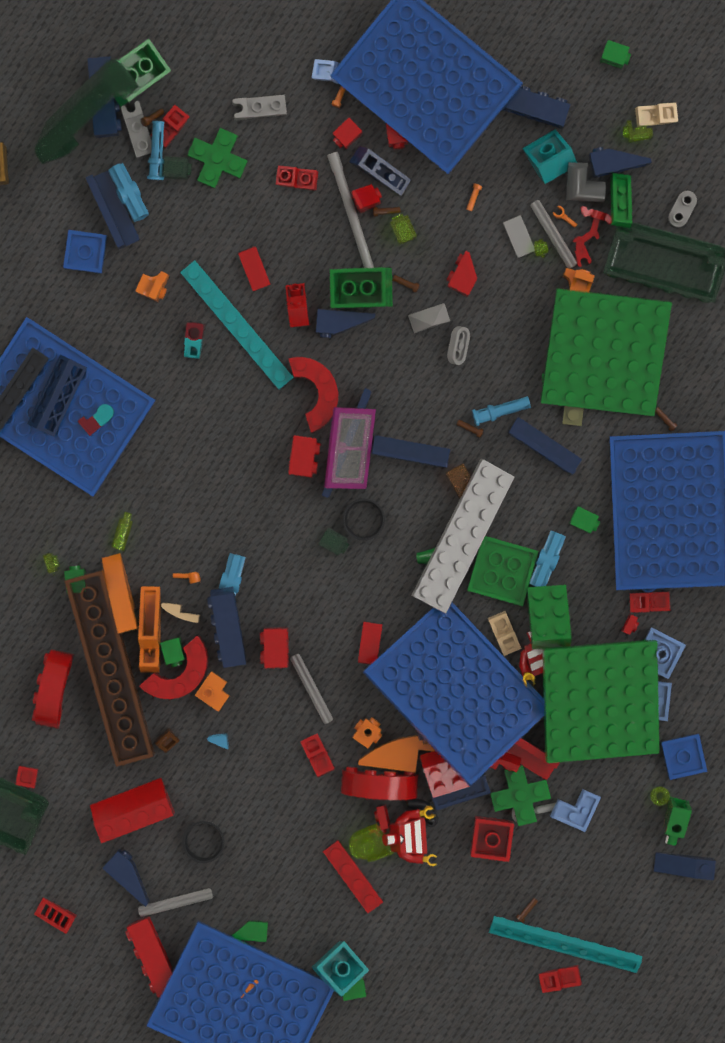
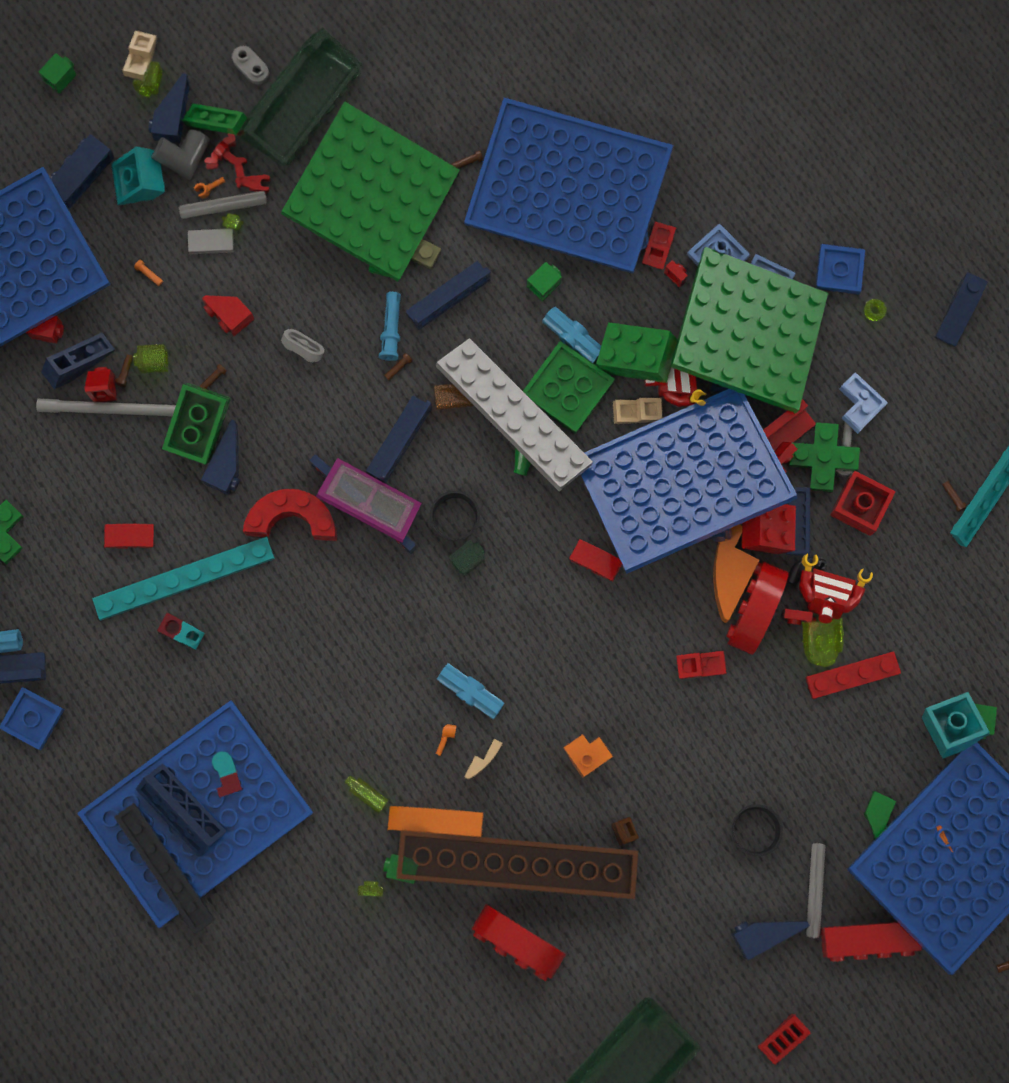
camera: 75 degrees left, 10 degrees down
(27, 776) = (609, 1012): red plate -> none
(131, 810) = (691, 901): red slope -> none
(150, 629) = (490, 802): orange slope -> none
(153, 286) = (102, 656): orange brick -> none
(173, 651) = (525, 785): green brick -> none
(185, 683) = (565, 782): red brick -> none
(220, 740) = (645, 768): dark azure slope -> none
(228, 627) = (519, 709): dark blue brick -> none
(275, 647) = (562, 664): red brick -> none
(297, 178) = (48, 454): red slope -> none
(297, 305) = (188, 502): red slope -> none
(303, 456) = (358, 554): red brick -> none
(311, 688) = (623, 644): light grey axle -> none
(346, 134) = (22, 380): red brick -> none
(367, 739) = (698, 605): orange brick -> none
(429, 318) = (260, 367): light grey slope -> none
(579, 280) = (279, 192): orange brick -> none
(676, 819) = (908, 298): green torso -> none

